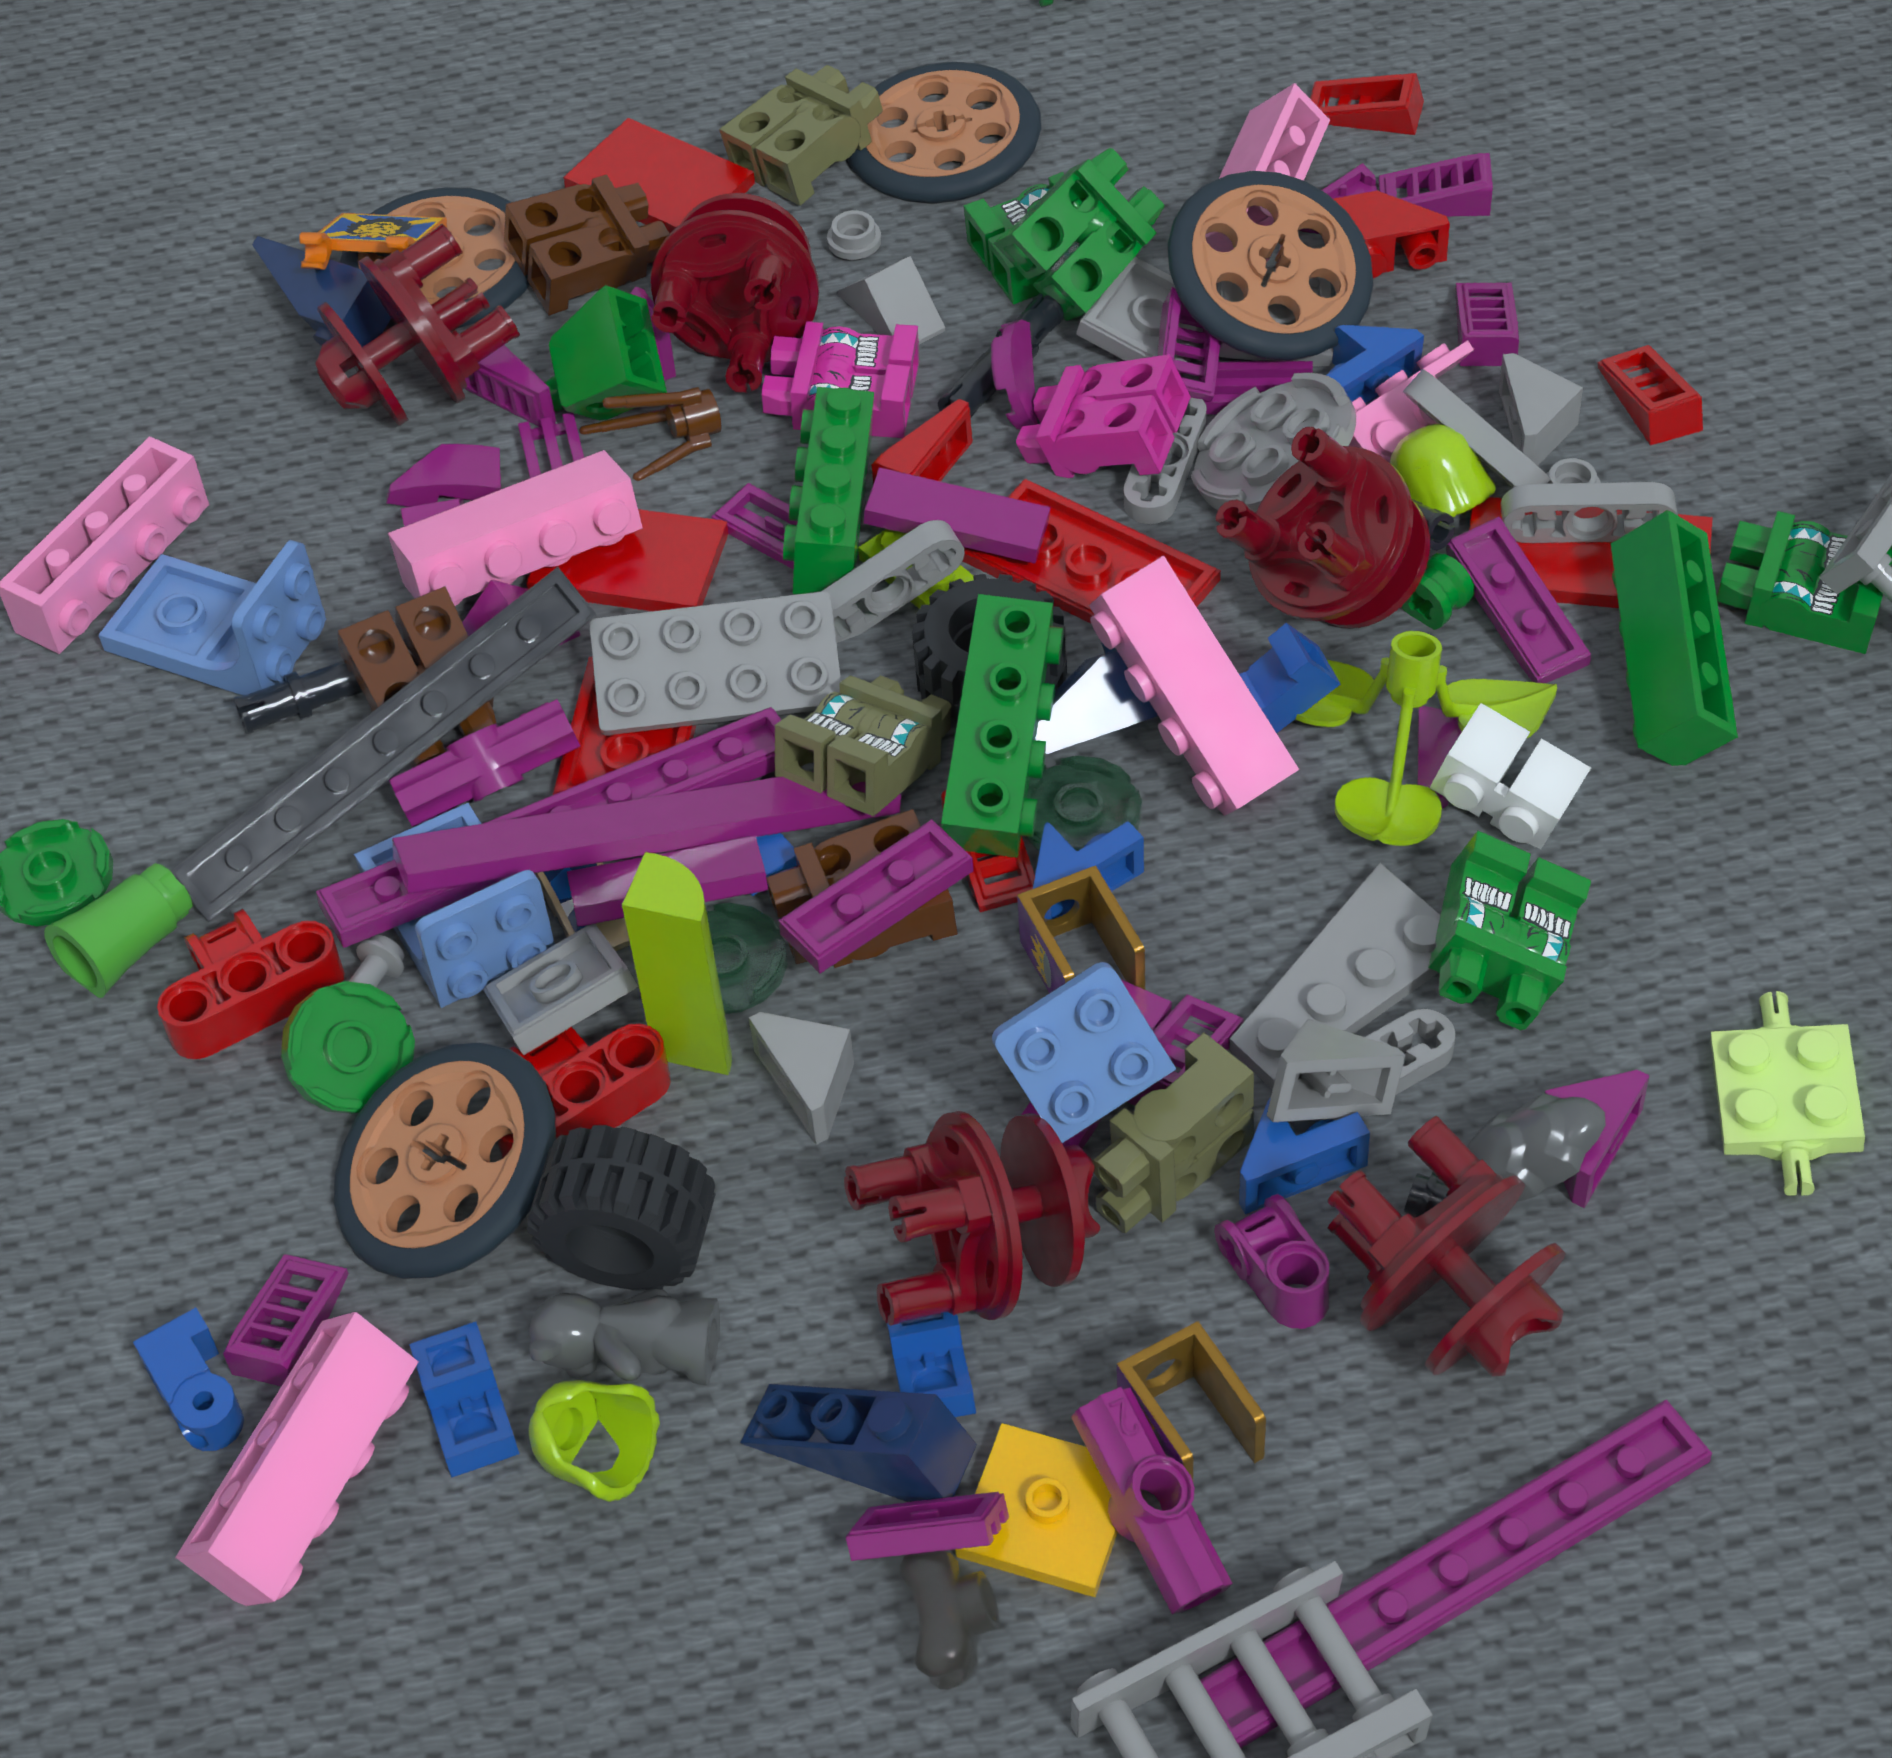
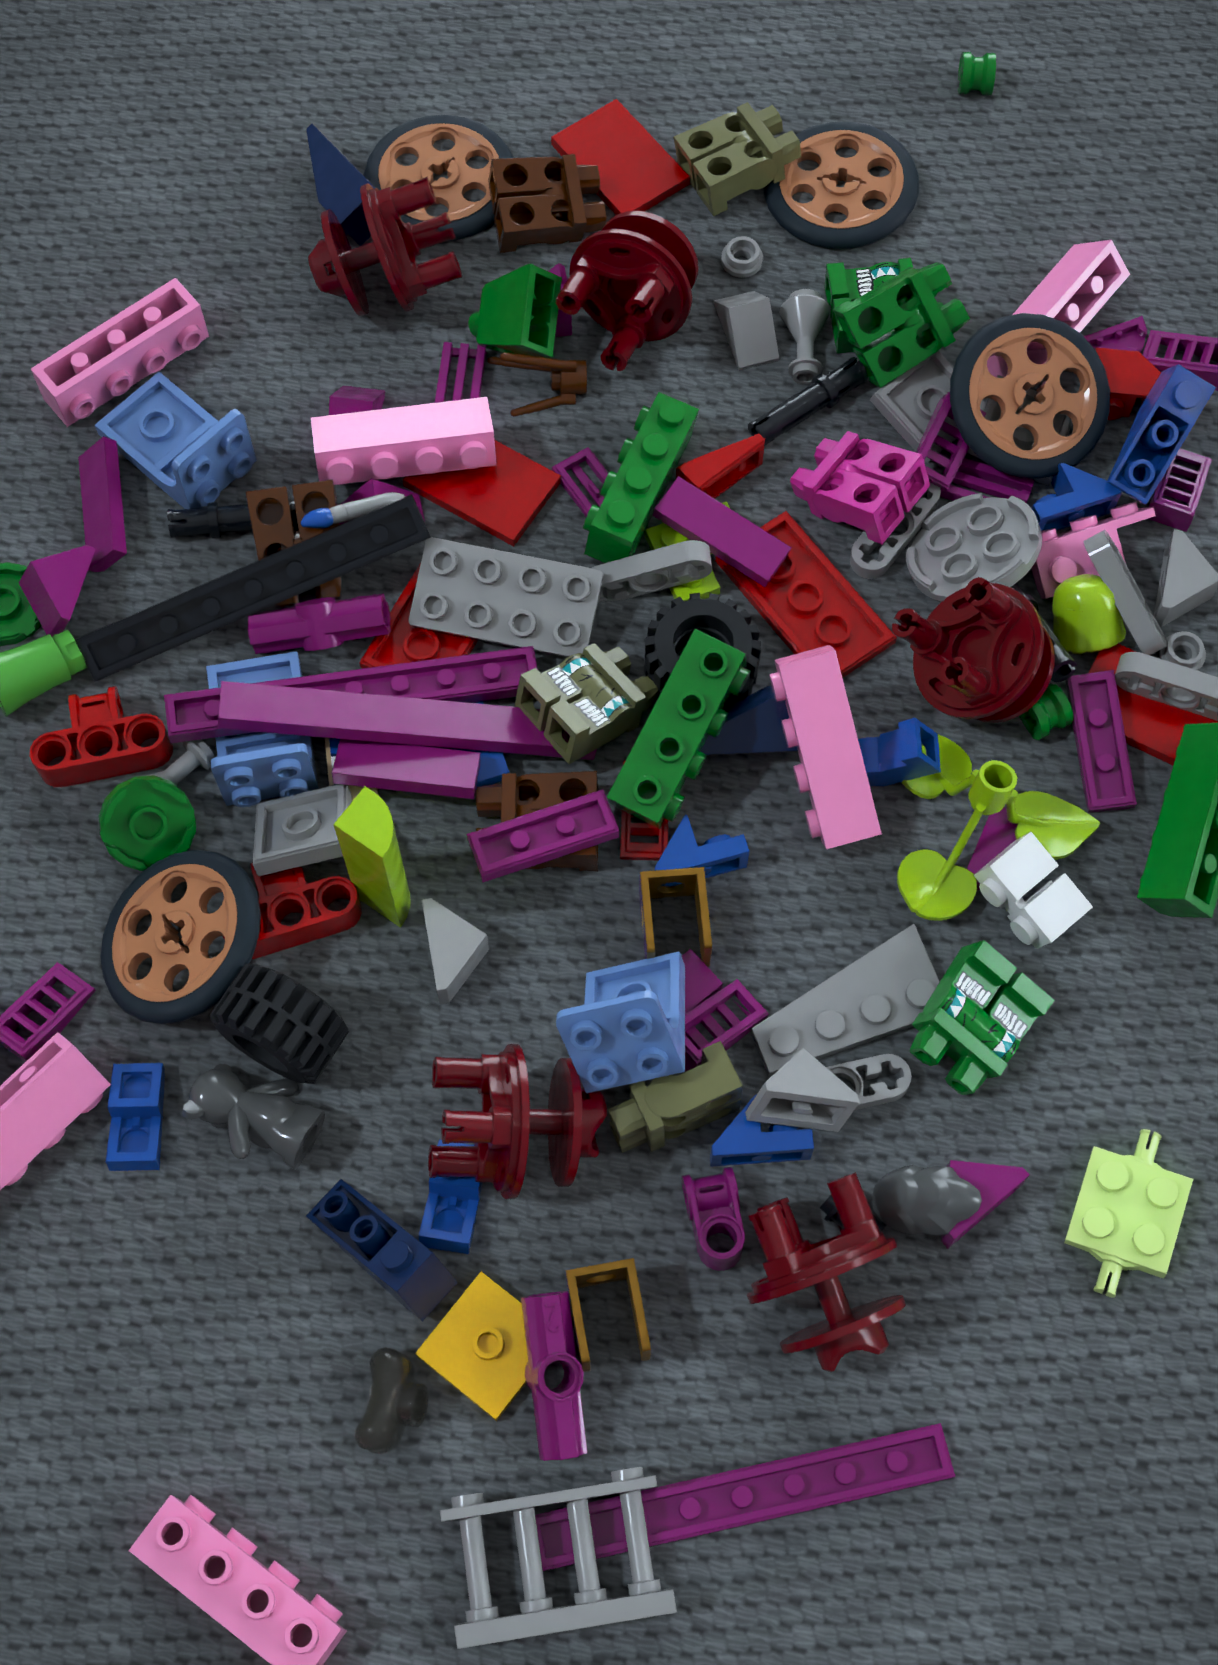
camera: 15 degrees right, 15 degrees up
(118, 821) = (54, 586): none -> magenta slope
(142, 721) = (102, 503): none -> magenta tile
(365, 234) = (393, 148): flag -> none
(448, 471) = (383, 368): magenta slope -> none
(455, 627) = (325, 517): none -> light grey piece
(512, 386) = (450, 311): magenta slope -> none
(569, 1414) = (188, 1166): lime hair -> none
(759, 968) = (432, 849): clear green tile -> none
(845, 360) = (691, 375): dark pink hips -> none
(927, 1526) = (398, 1337): magenta tile -> none
(958, 273) = (804, 316): none -> light grey piece
(1014, 371) = (810, 420): magenta tile -> none
(1106, 804) = (720, 810): clear green tile -> none
(1395, 108) = (1175, 279): red slope -> none
(1440, 254) = (1159, 431): none -> blue slope

